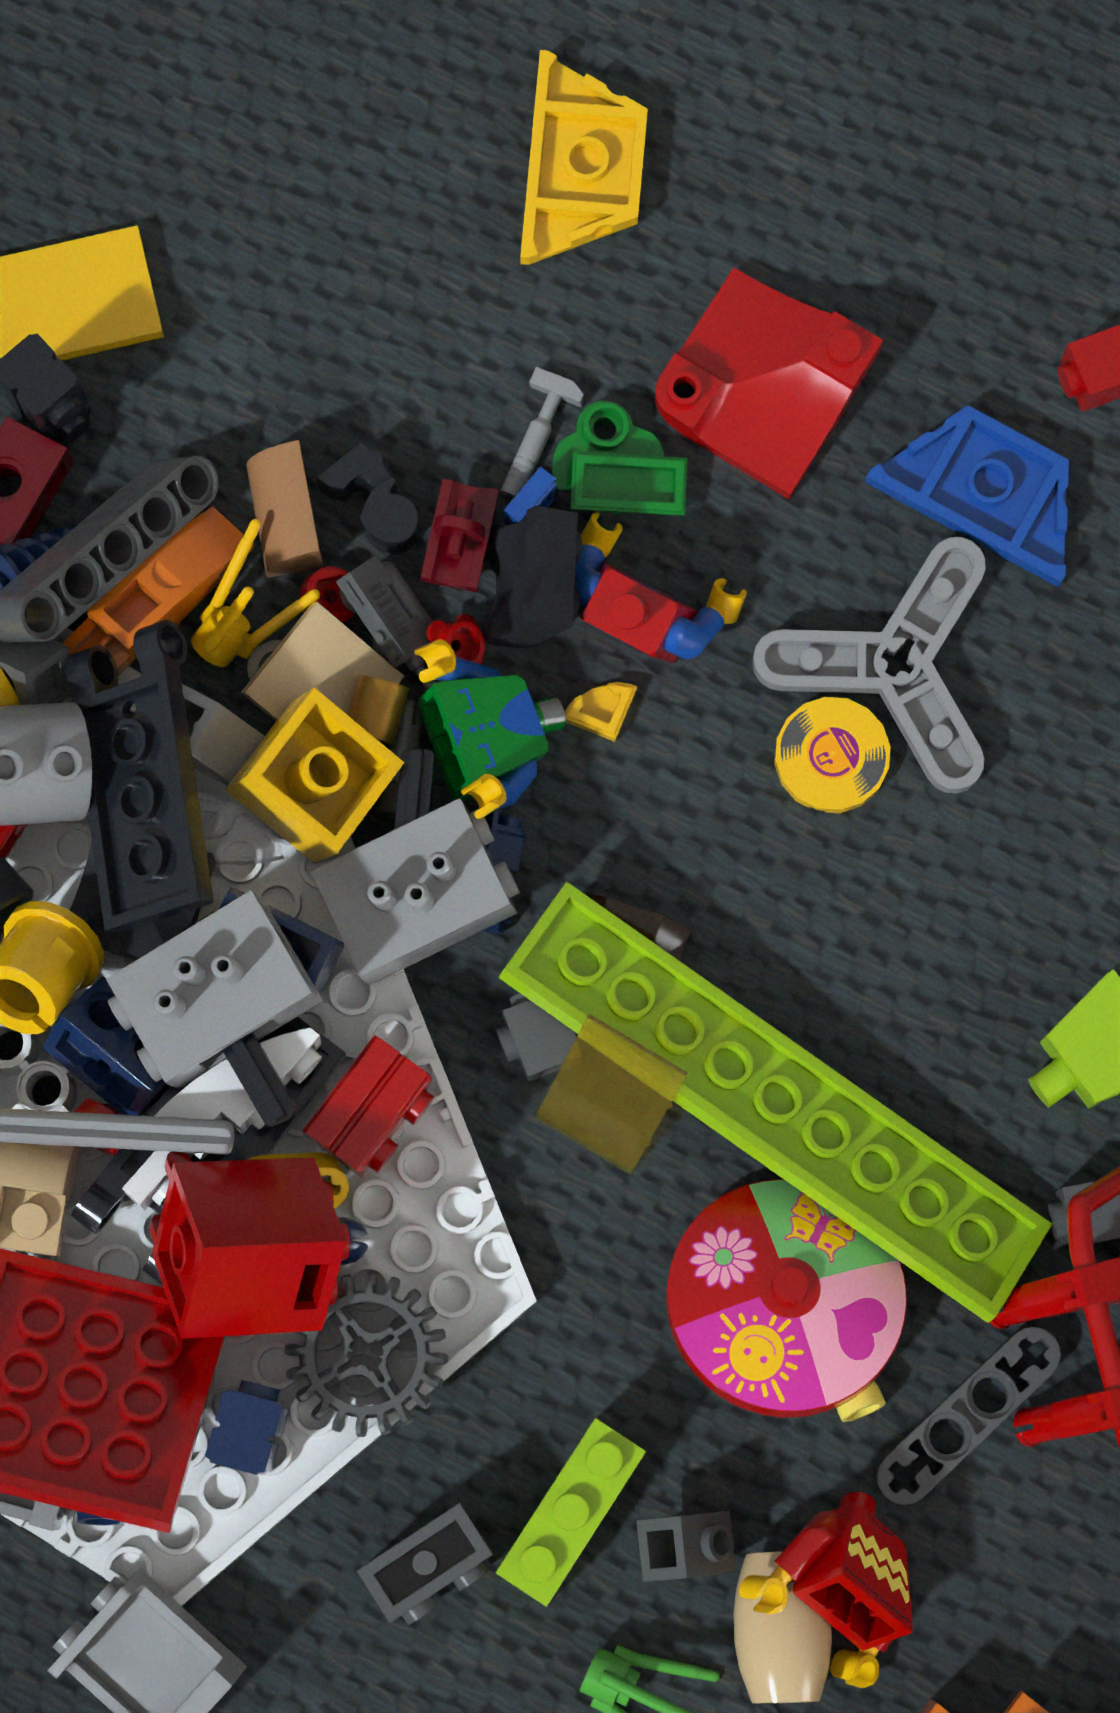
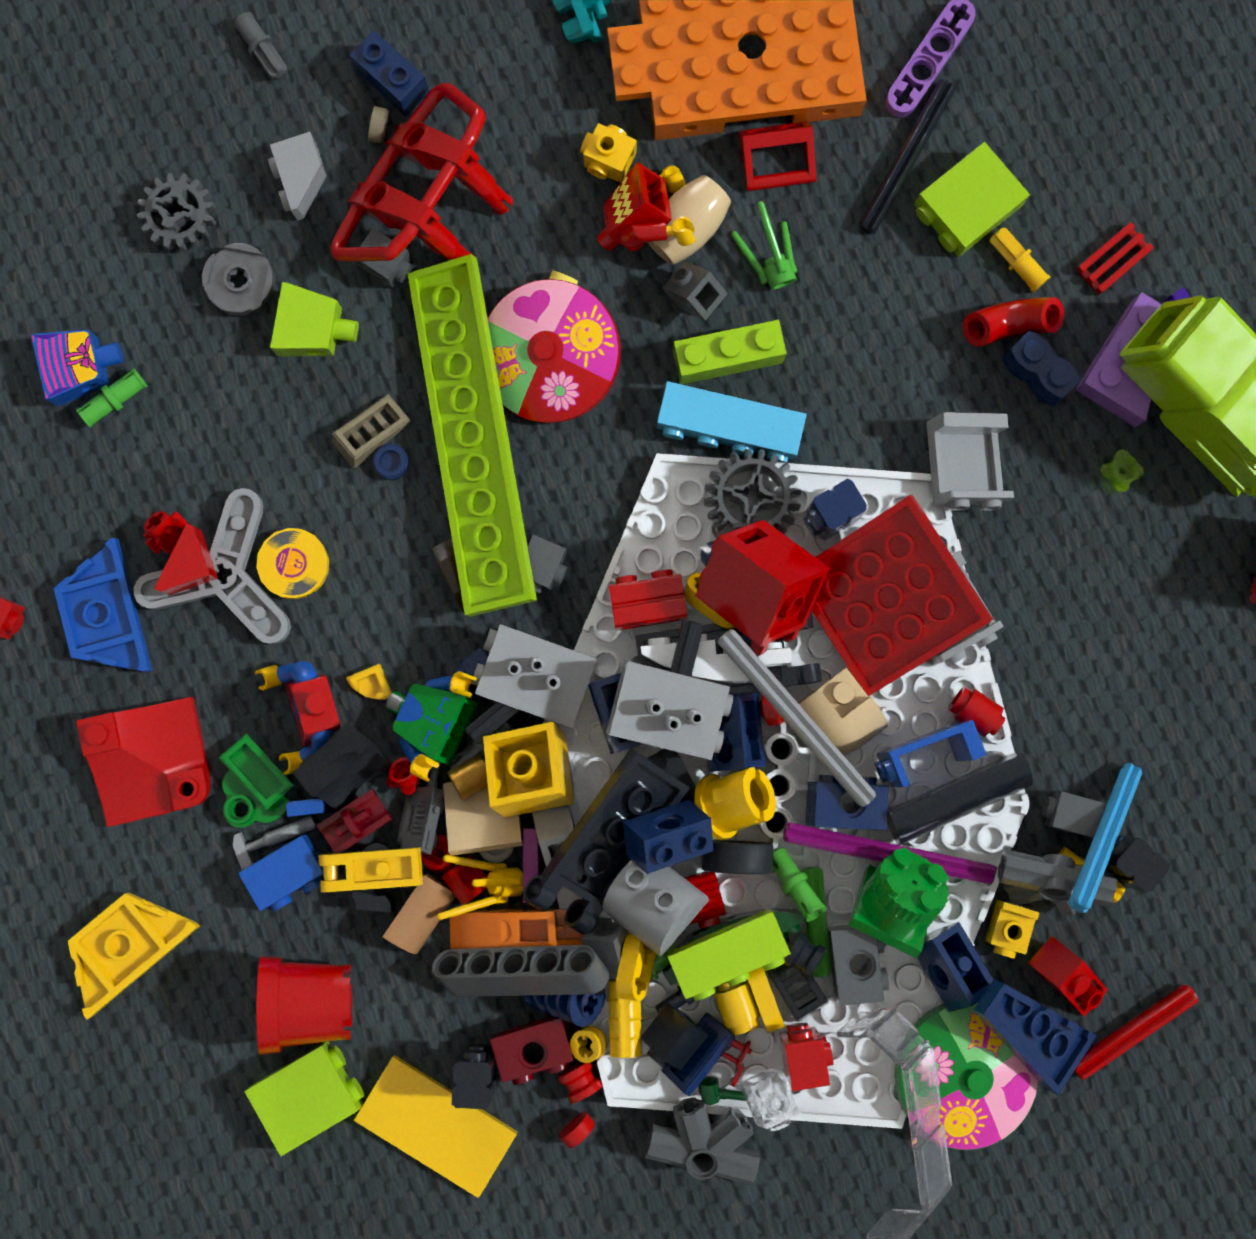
camera: 135 degrees left, 5 degrees up
(74, 847) = (668, 836): none -> dark blue brick
(215, 198) = (305, 1097): none -> lime brick
(217, 687) = (531, 855): none -> magenta tile
(273, 592) = (460, 882): none -> red tile
(316, 285) = (301, 1004): none -> red piece
(383, 498) = (372, 869): none -> yellow plate
(426, 1562) = (811, 388): dark grey brick -> none
(482, 408) = (283, 873): none -> blue brick
(485, 1428) = (730, 422): none -> medium azure brick
(610, 1094) = (538, 505): clear yellow window -> none
(842, 983) = (390, 461): none -> dark blue tile
(883, 970) = (366, 449): none -> dark tan slope
(941, 1619) = (608, 152): none -> yellow brick
(942, 632) = (188, 563): none -> red slope
(962, 1410) = (524, 226): dark grey beam -> none
(1009, 644) = (163, 531): none -> red gear

